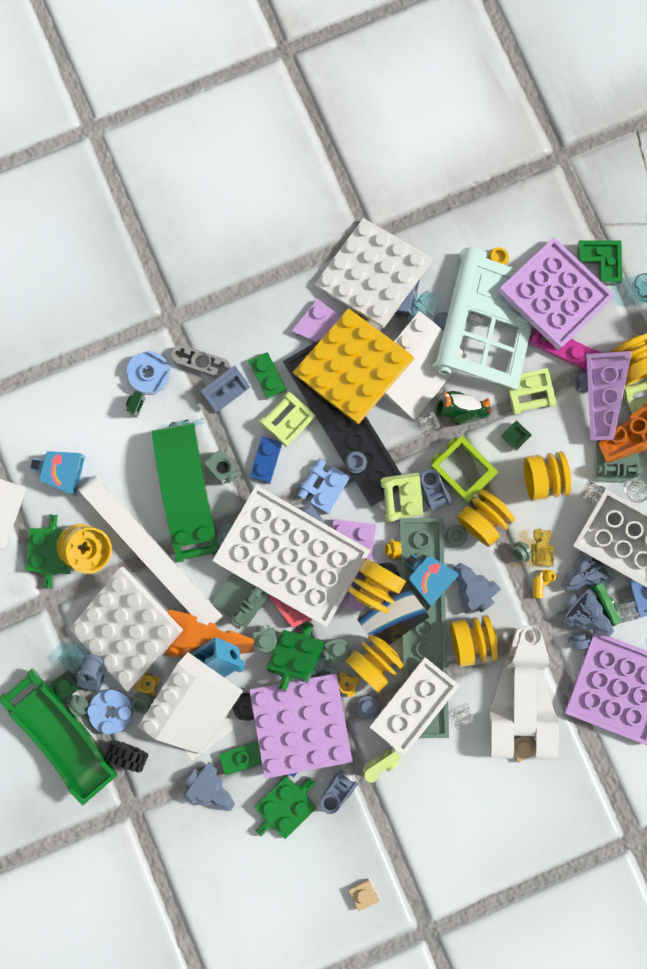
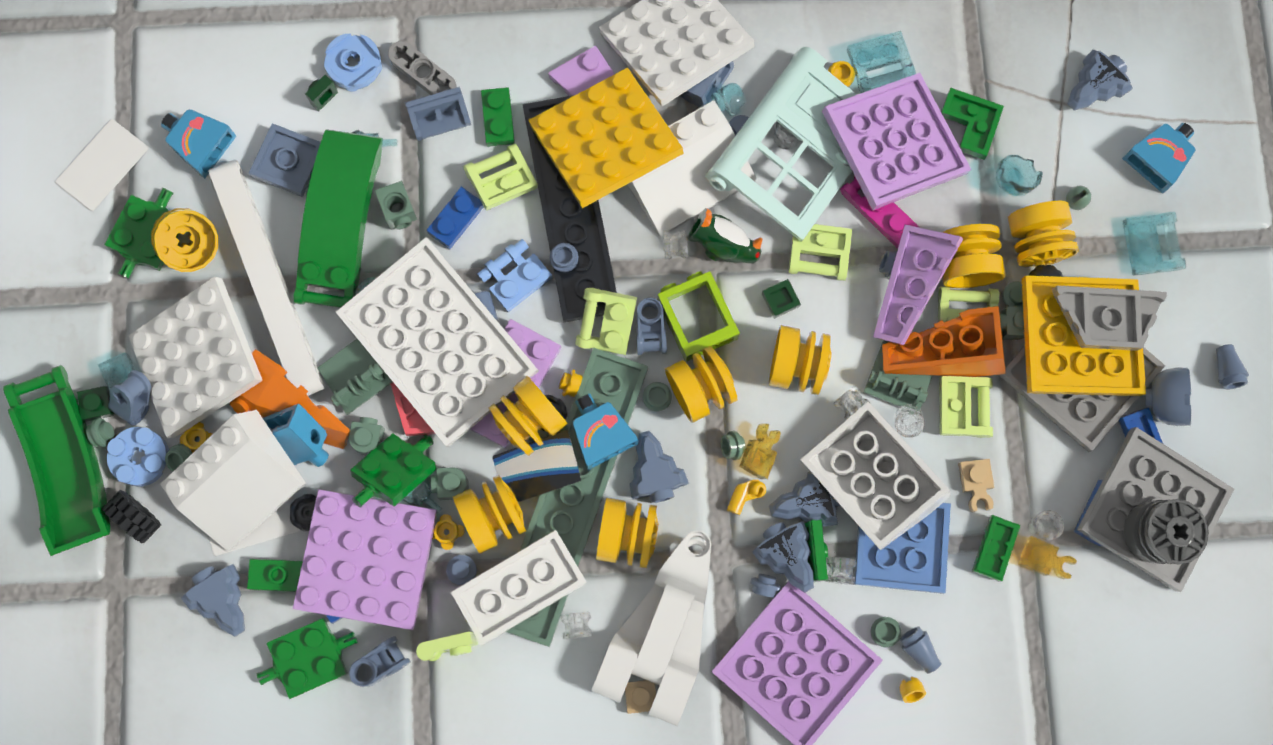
camera: 20 degrees right, 5 degrees down
(130, 461) = (285, 160): none -> sand blue plate
(520, 232) = (877, 54): none -> clear light blue plate

